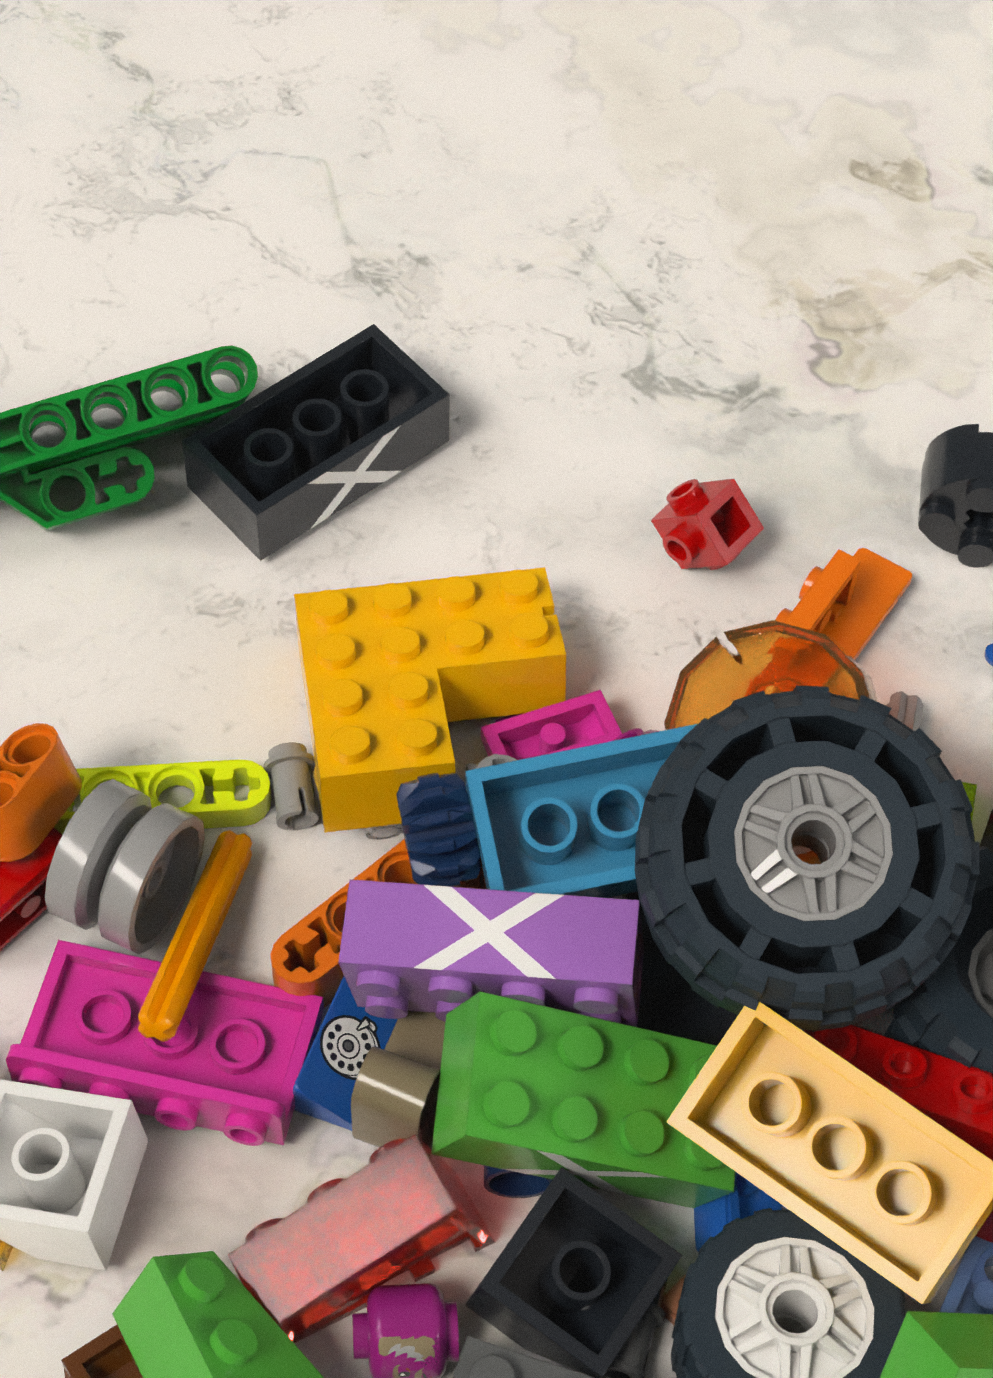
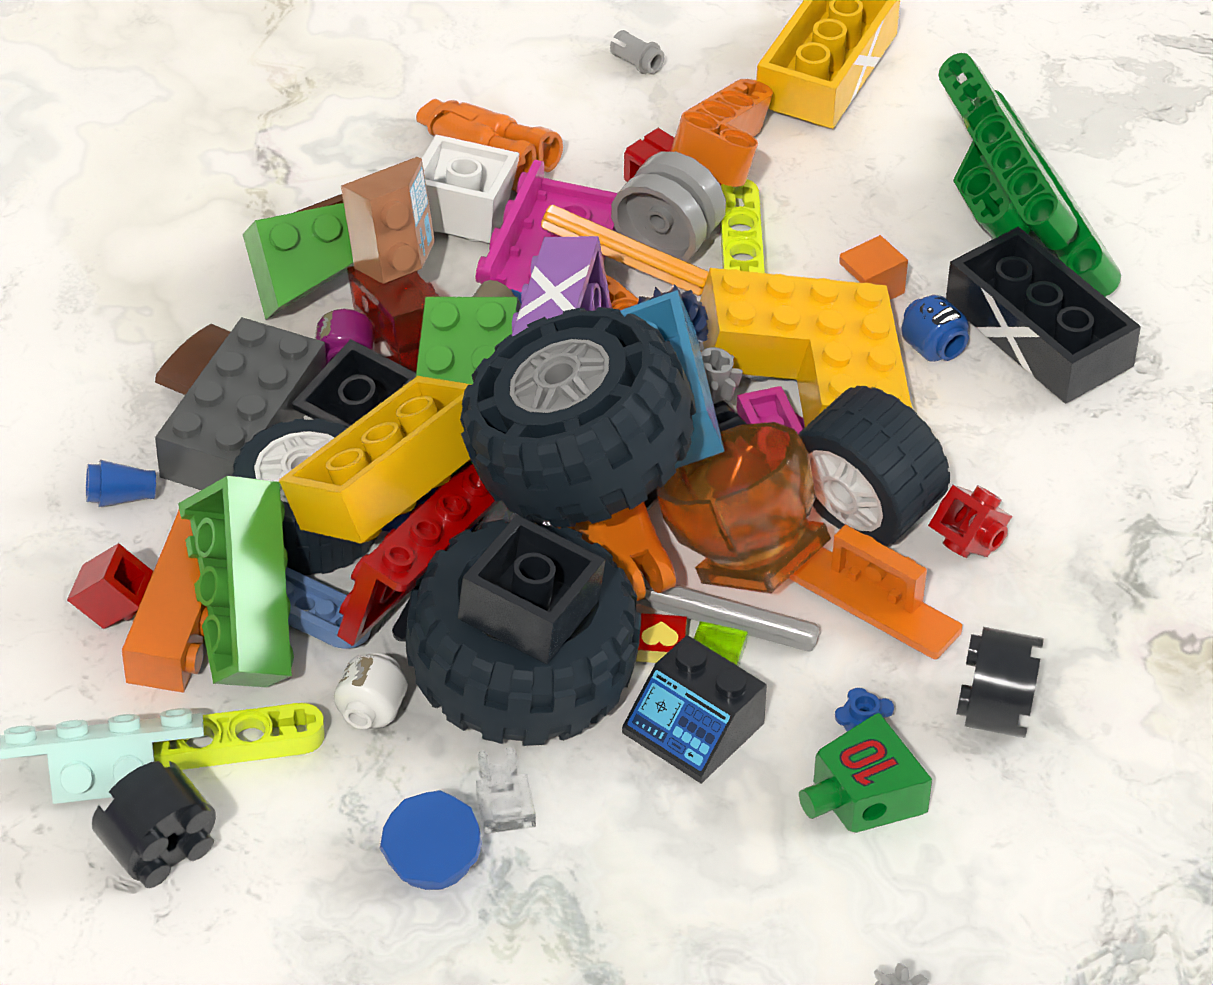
camera: 95 degrees right, 10 degrees down
(224, 623) = (877, 264): none -> orange panel
(241, 1226) = (389, 221): none -> nougat slope
(330, 559) = (935, 328): none -> blue head
(663, 602) = (874, 464): none -> black wheel

